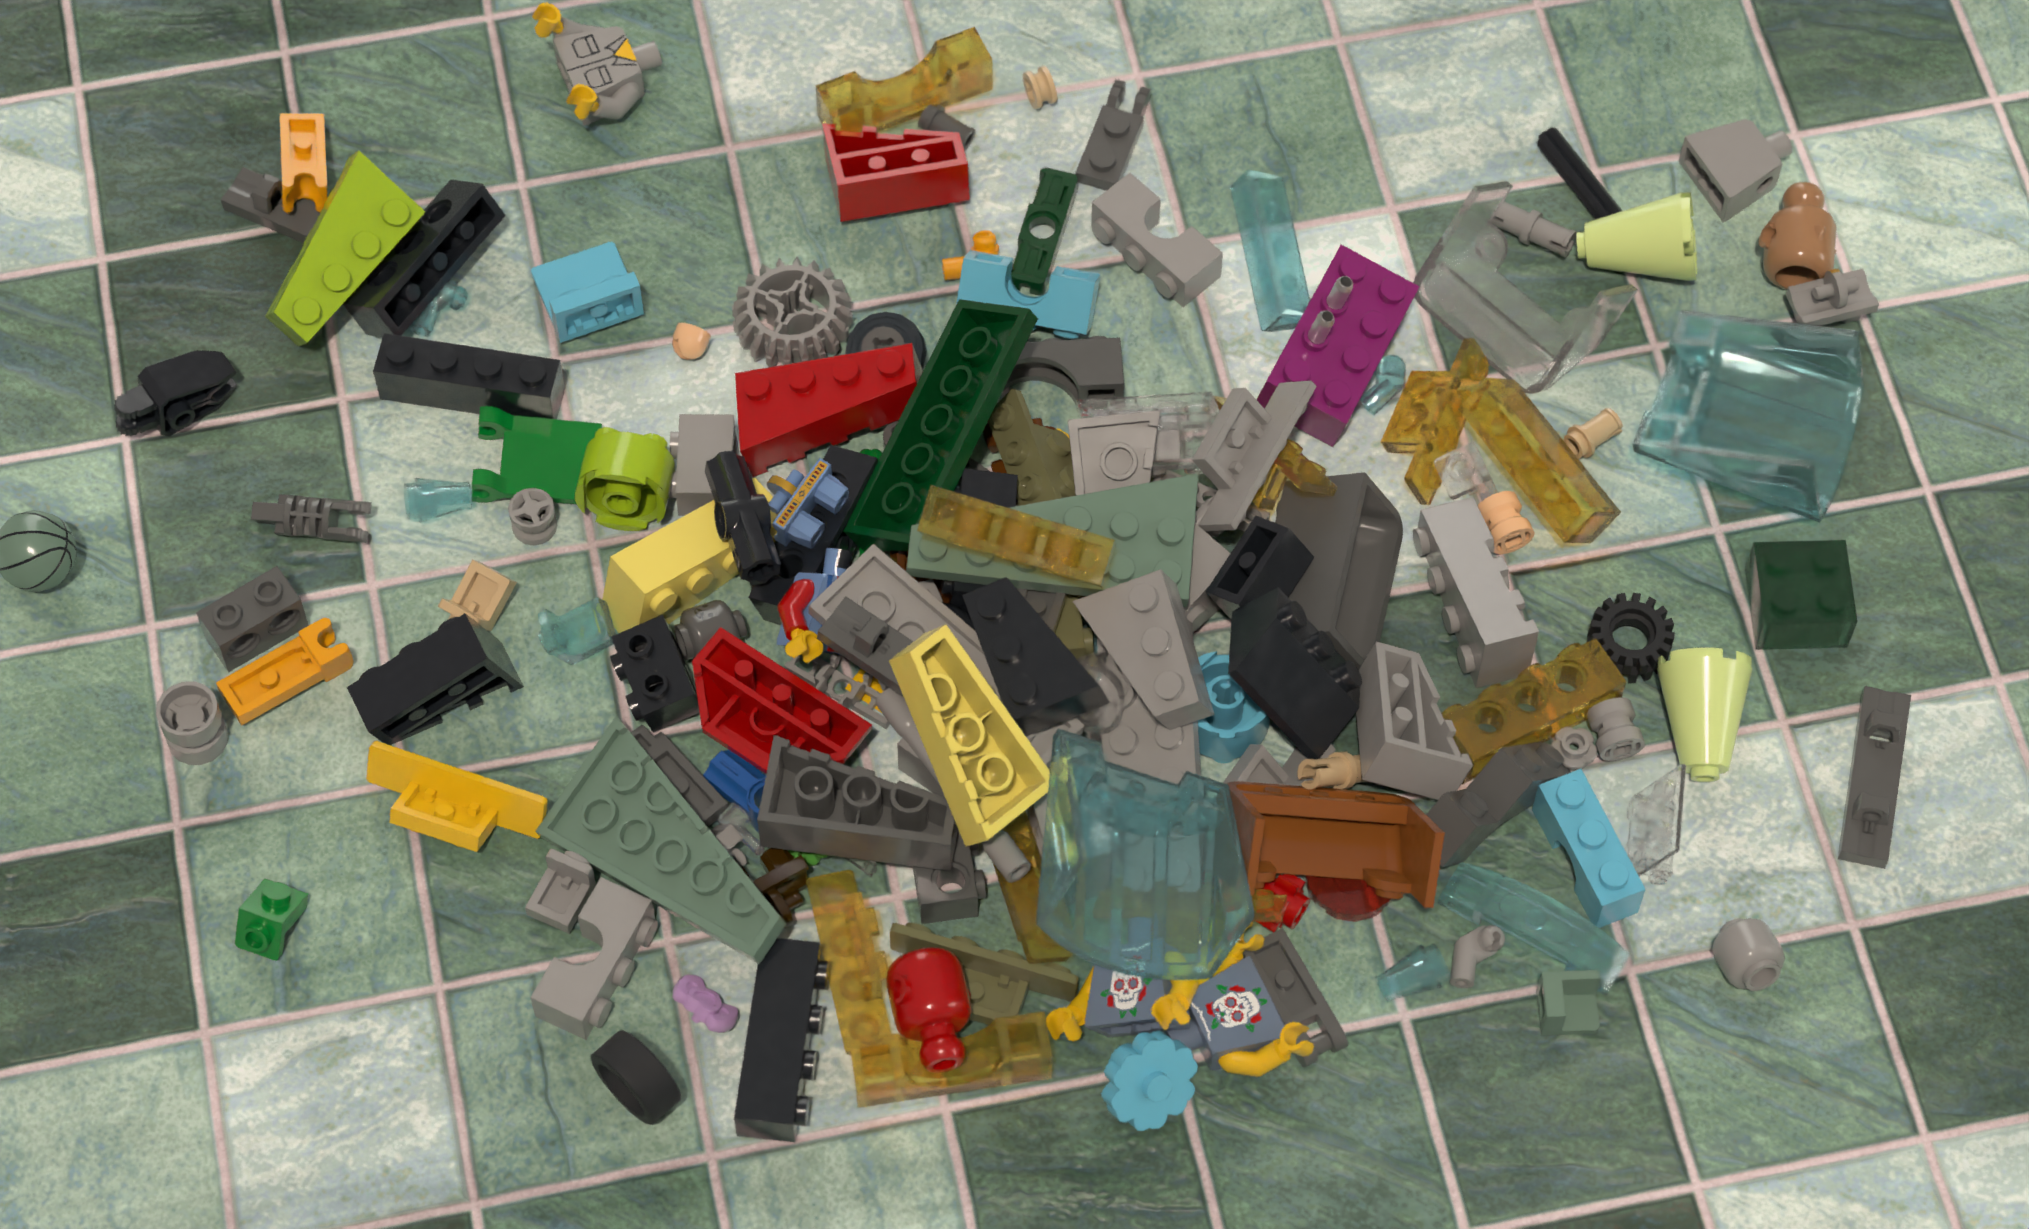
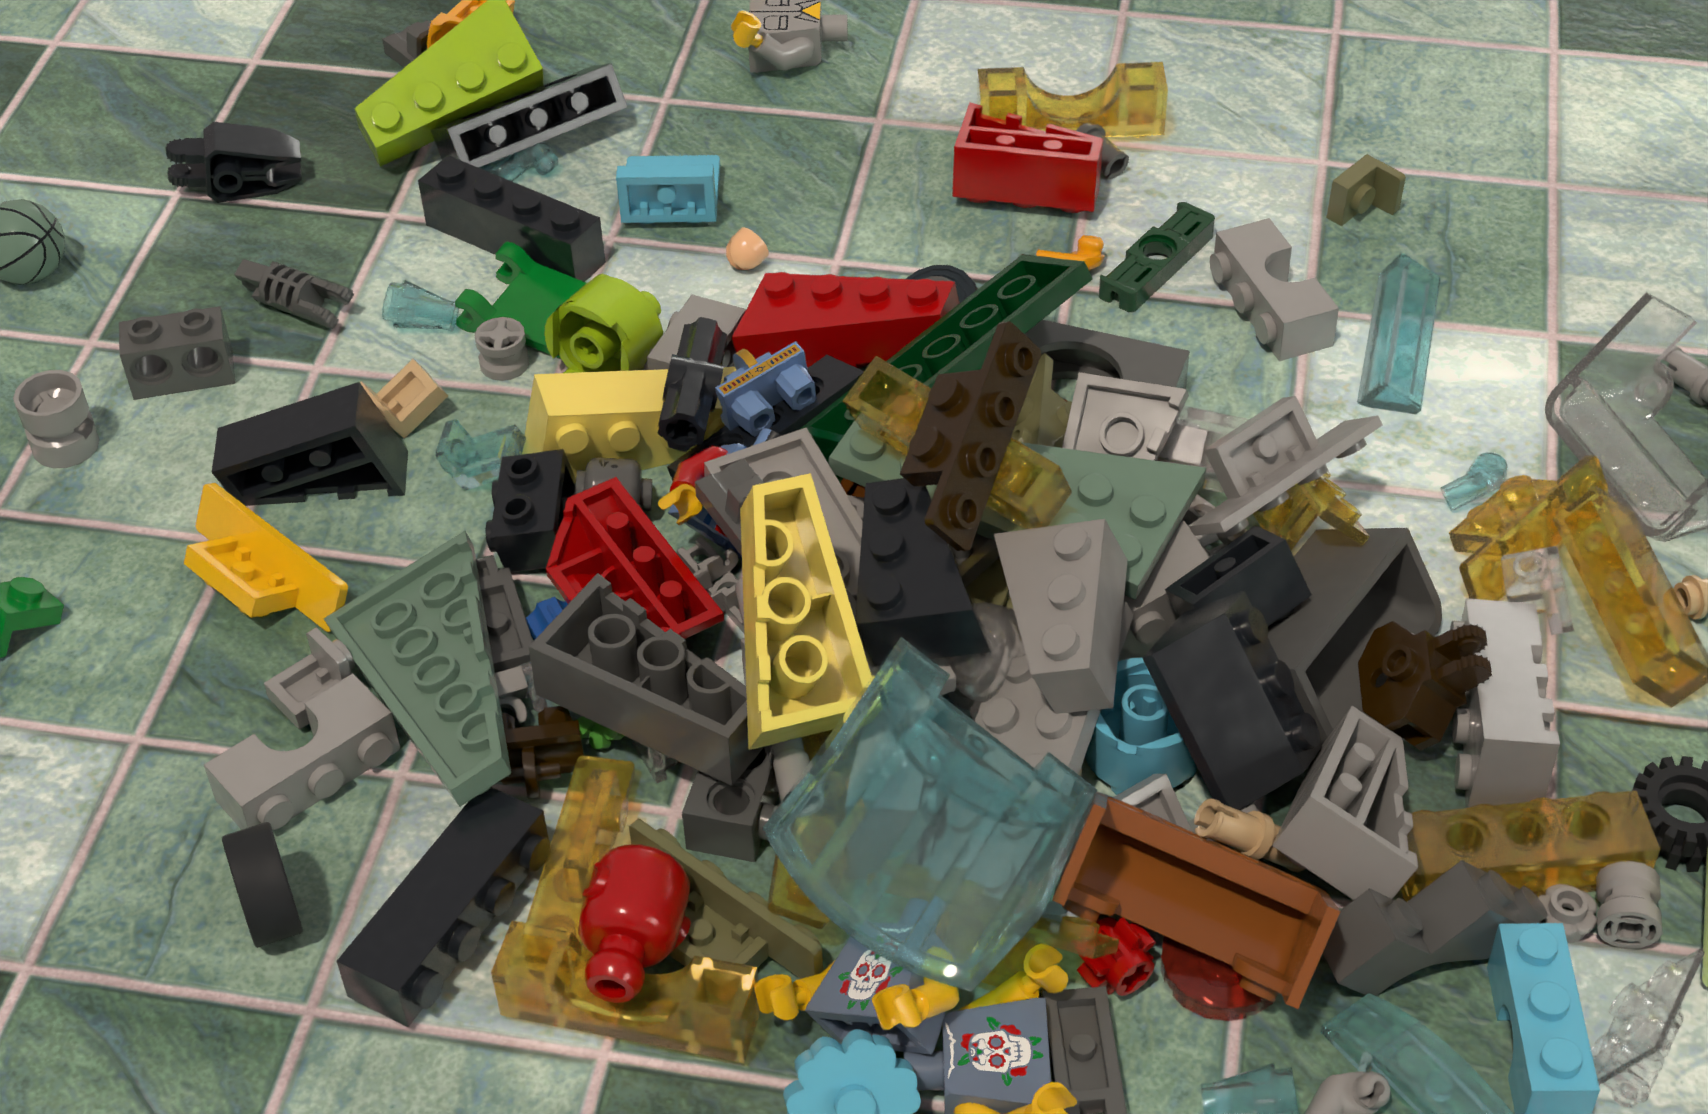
camera: 25 degrees right, 15 degrees down
(285, 672) = (179, 407): light orange plate -> none
(704, 1004) = (392, 841): lavender piece -> none
(780, 295) = (860, 242): light grey gear -> none
(1034, 537) = (968, 433): none -> dark brown bracket
(1039, 87) = (1212, 140): tan bush -> none
(1065, 306) = (1147, 310): medium azure arch -> none
(1113, 139) = (1274, 194): dark grey hinge -> none
(1190, 99) = (1364, 185): none -> olive bracket
(1341, 340) = (1436, 421): magenta piece -> none
(1415, 598) = (1423, 679): none -> dark brown hinge
(1505, 522) = (1569, 648): light nougat wheel -> none

